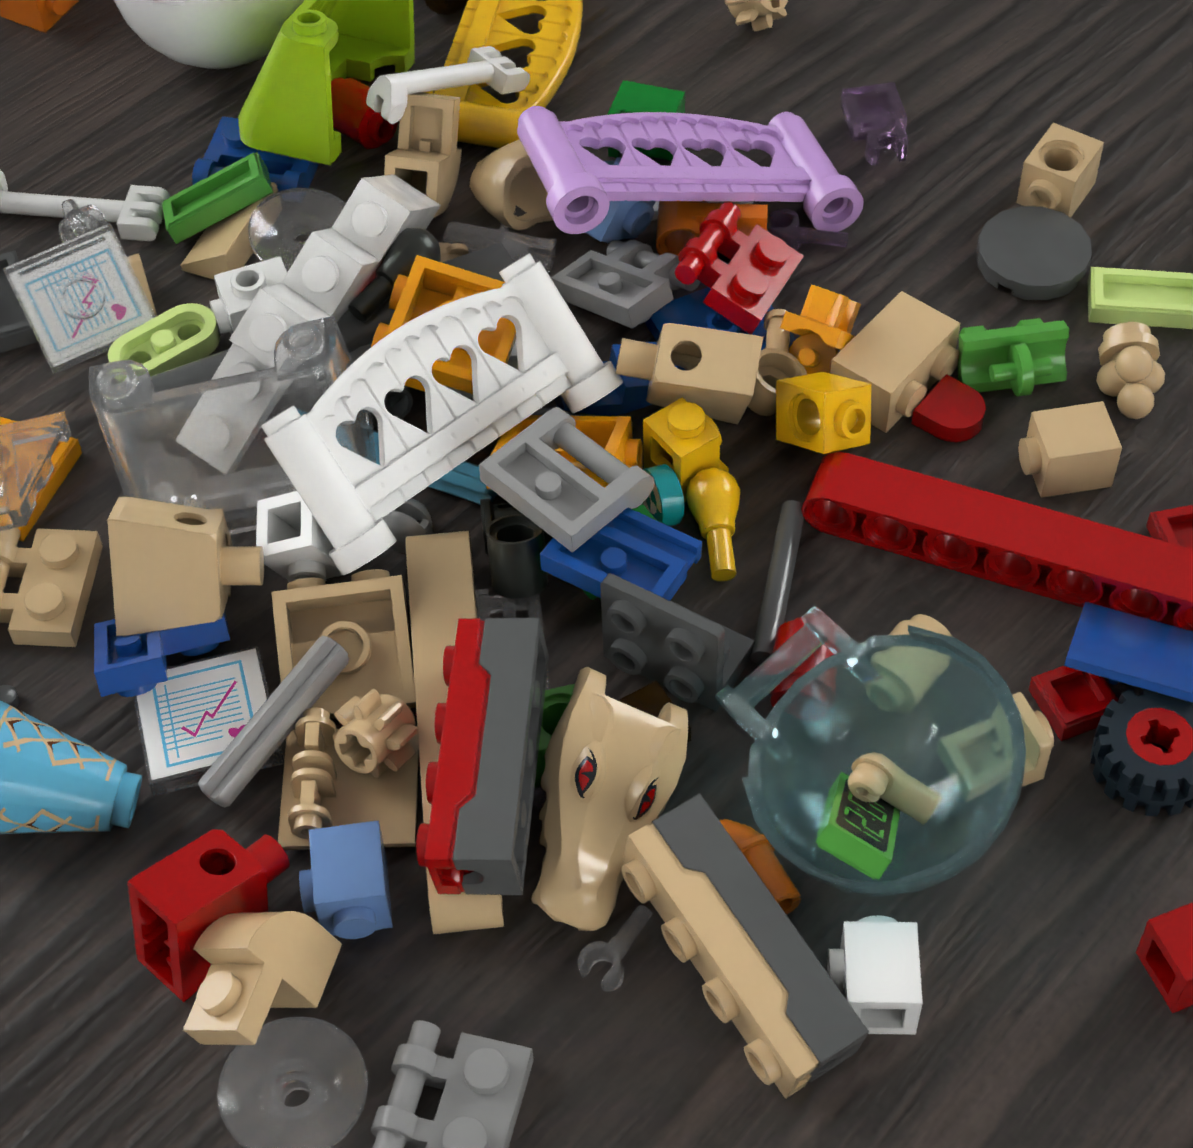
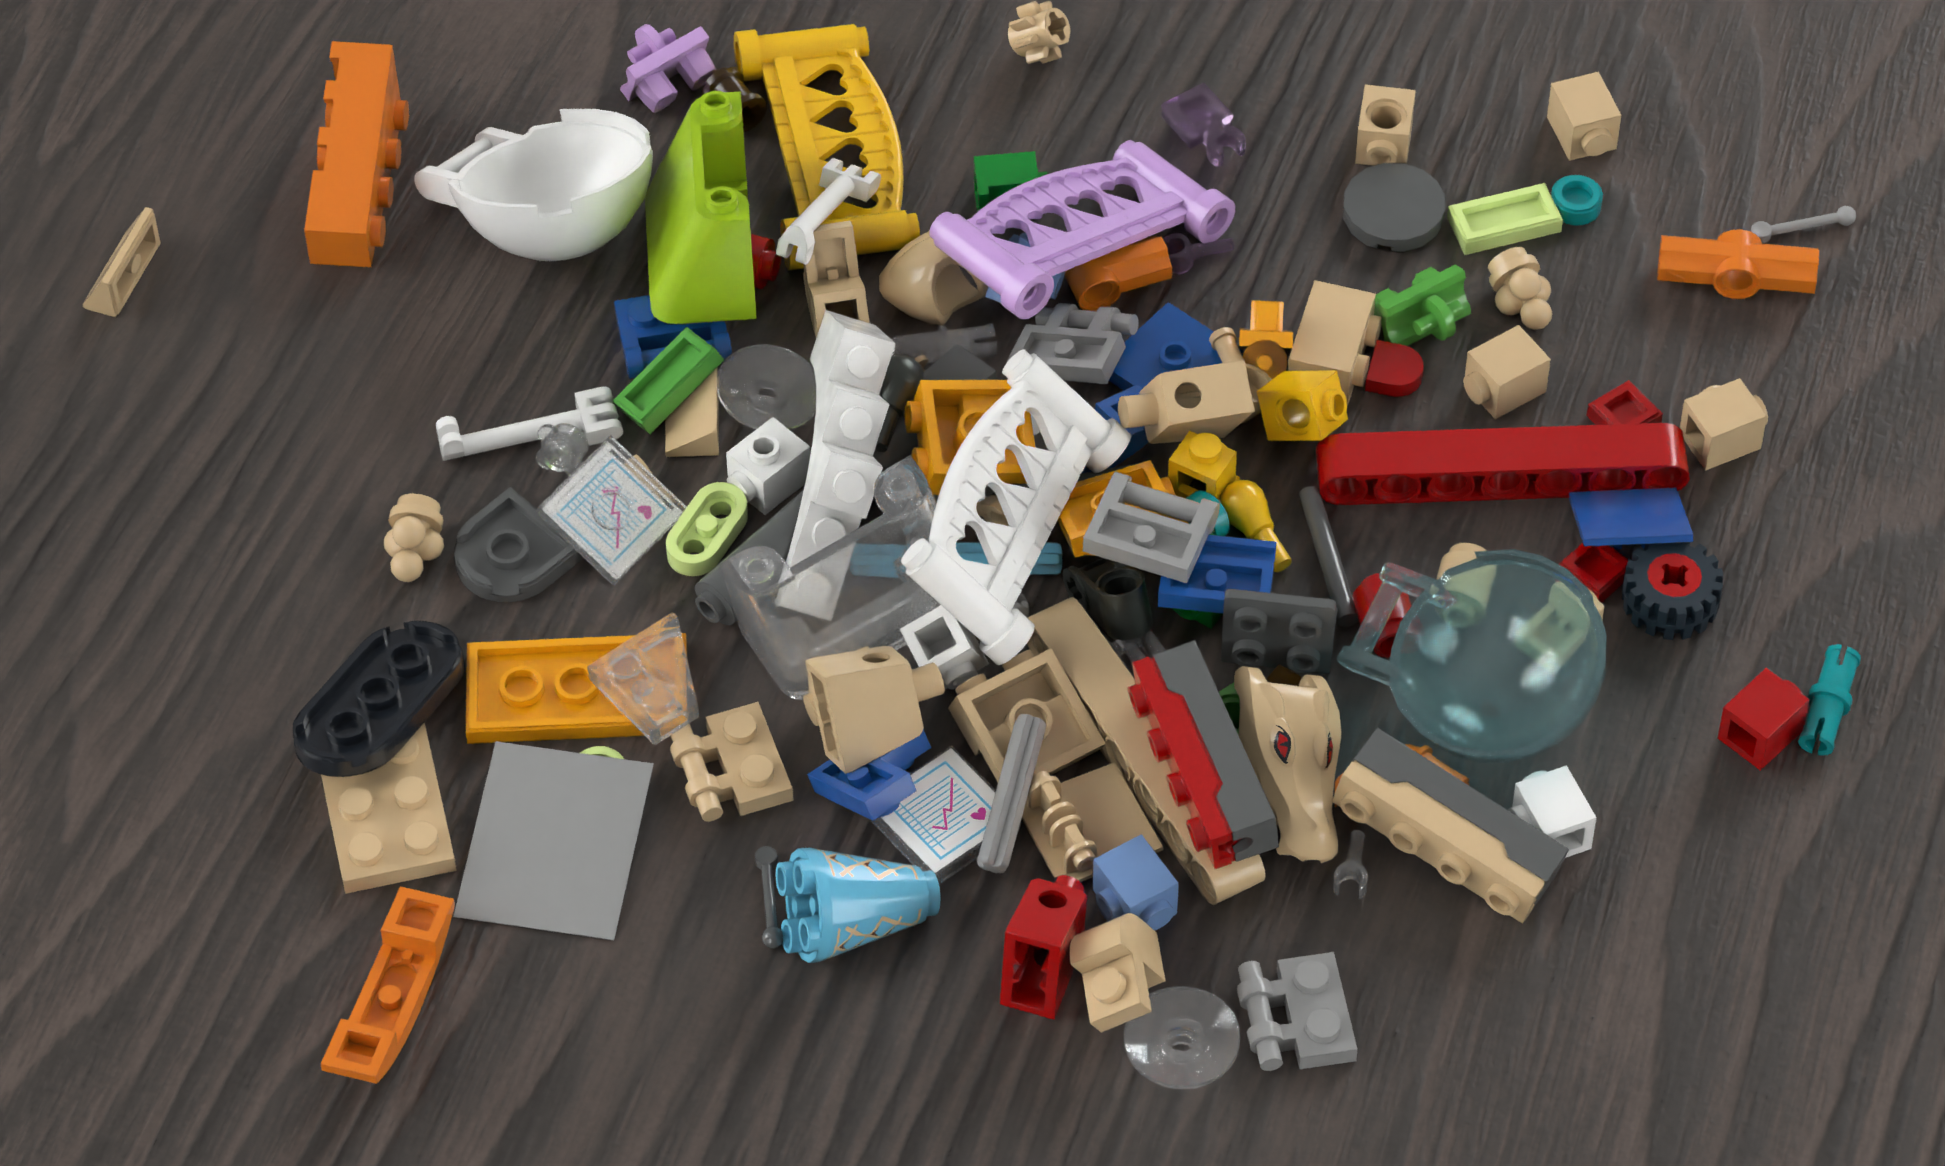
camera: 25 degrees left, 0 degrees up
(375, 733) = (1098, 774): tan gear -> none
(752, 278) = (1180, 305): red plate -> none
(858, 830) = (1495, 712): bright green tile -> none
(879, 777) = (1494, 675): tan arm -> none

